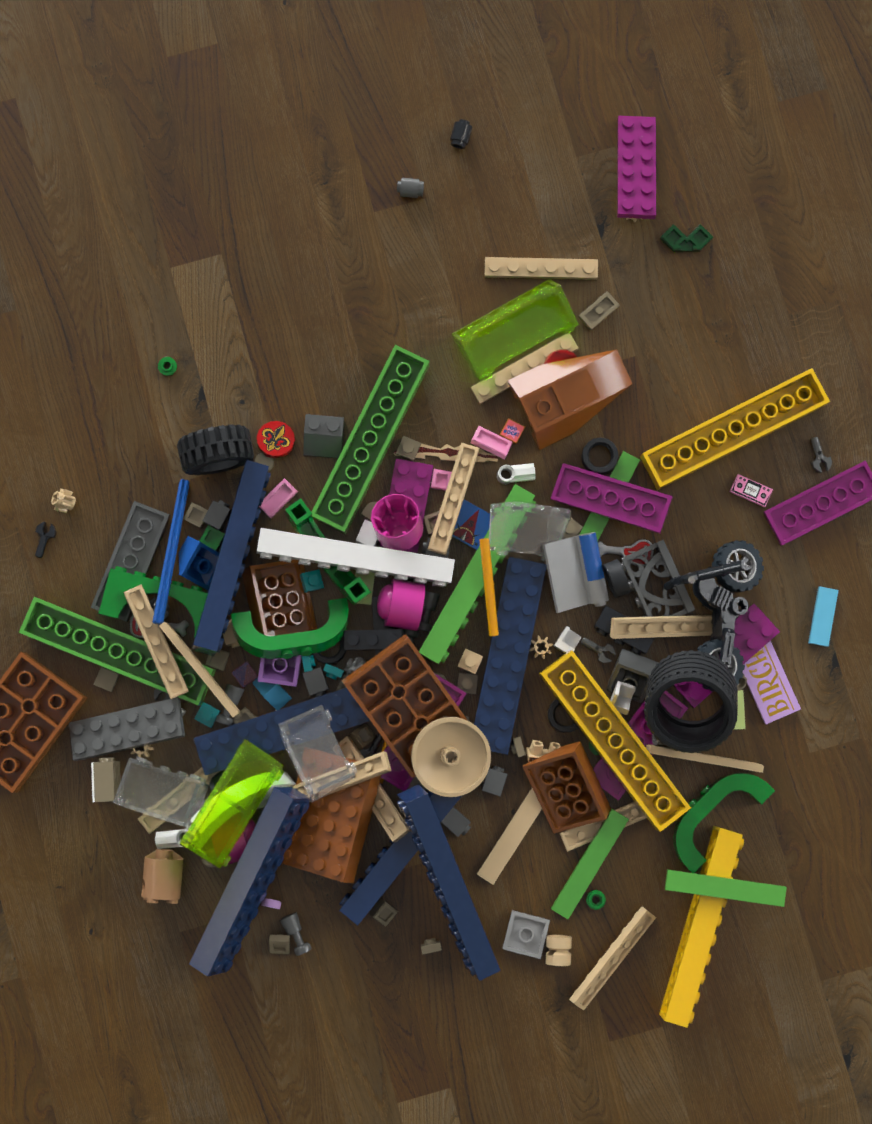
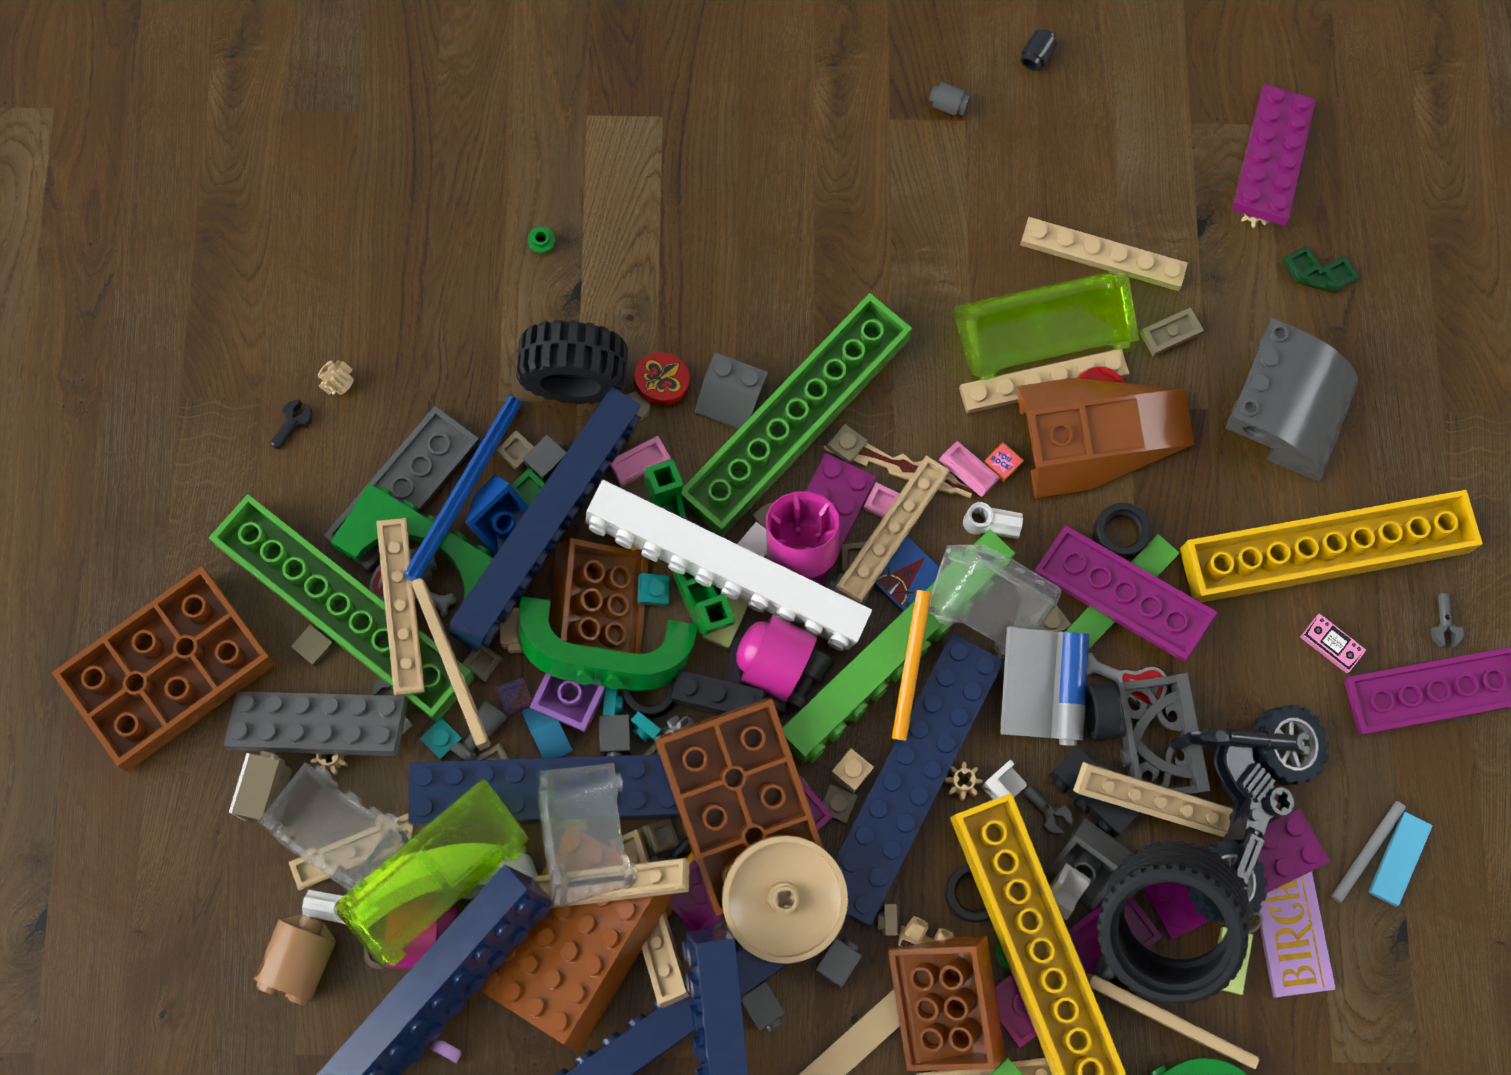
camera: 15 degrees right, 10 degrees down
(689, 337) = (1295, 399): none -> dark grey slope
(802, 618) = (1368, 852): none -> light grey bar

